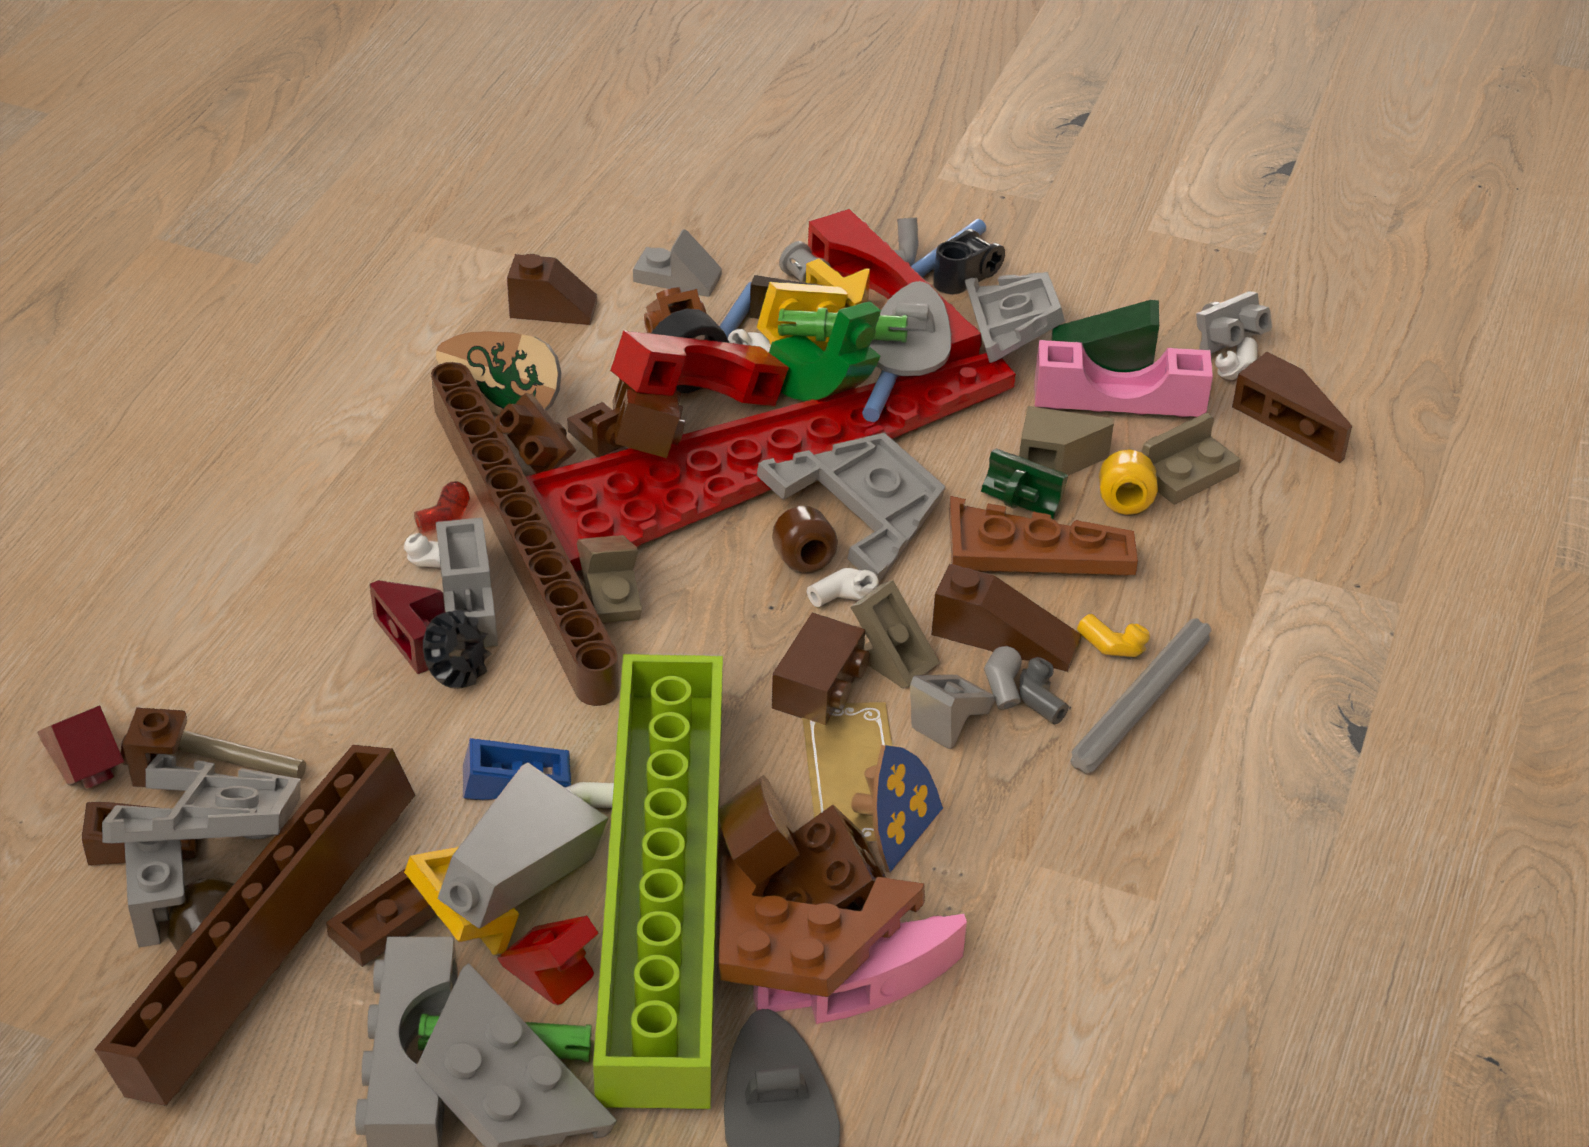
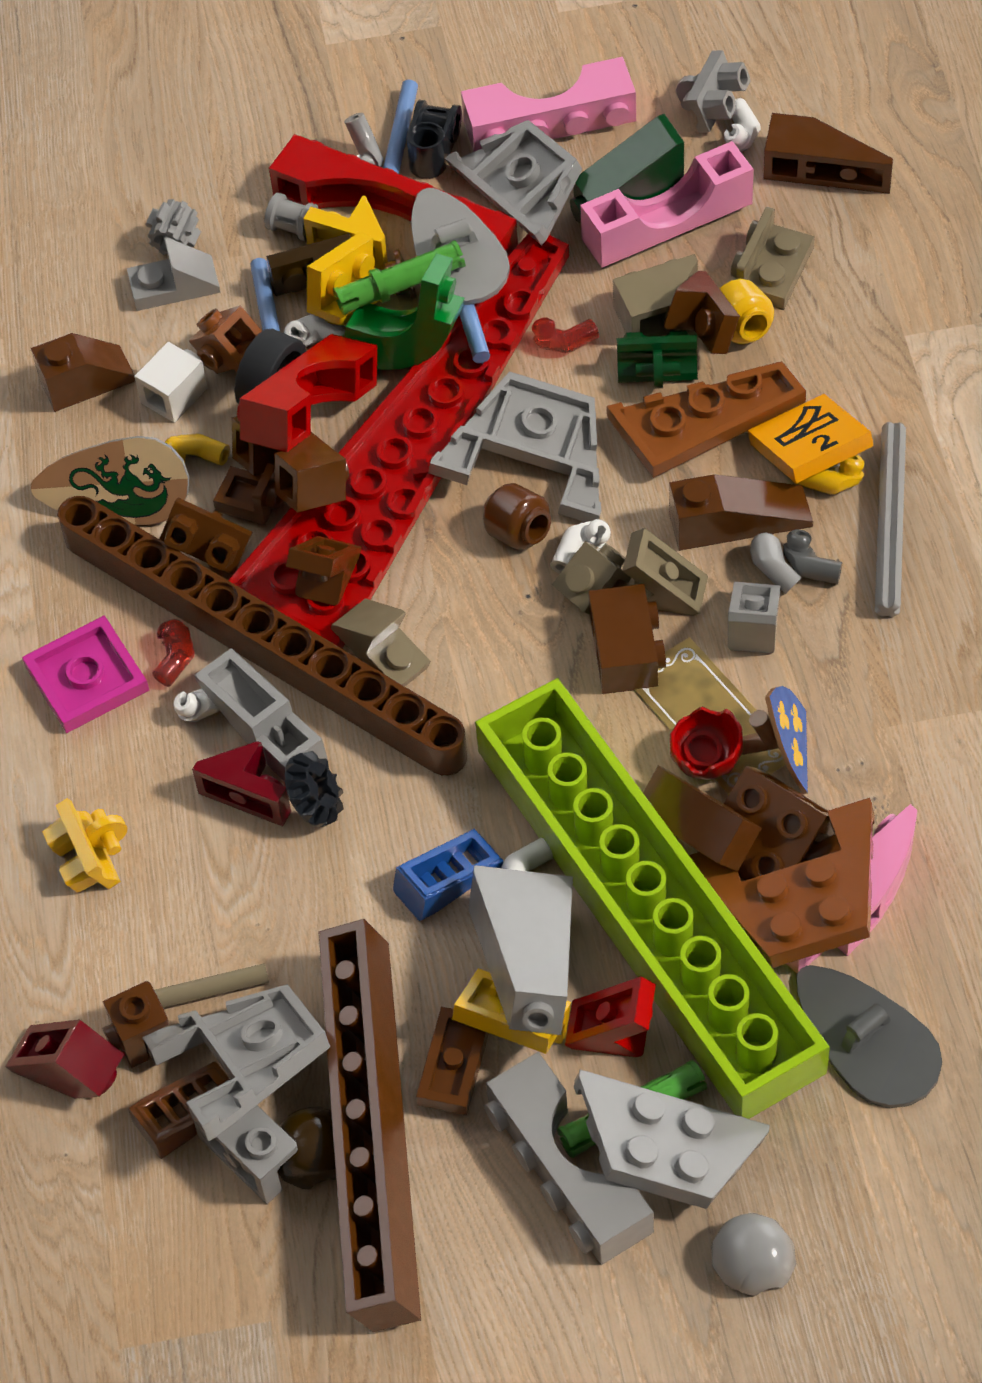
camera: 25 degrees left, 15 degrees up
(246, 604) = (93, 839): none -> yellow hips
(363, 493) = (85, 674): none -> dark pink tile
(592, 380) = (200, 446): none -> yellow arm
(603, 326) = (171, 381): none -> white brick
(605, 494) = (323, 568): none -> reddish brown slope
(707, 229) = (172, 221): none -> light grey gear
(821, 779) = (706, 743): none -> red hair
(831, 601) = (590, 570): none -> dark tan bracket
(958, 441) = (562, 340): none -> clear red arm
(1084, 288) = (596, 101): none -> bright pink arch
(1085, 457) = (703, 309): none -> reddish brown slope
(1113, 598) = (810, 438): none -> light orange tile

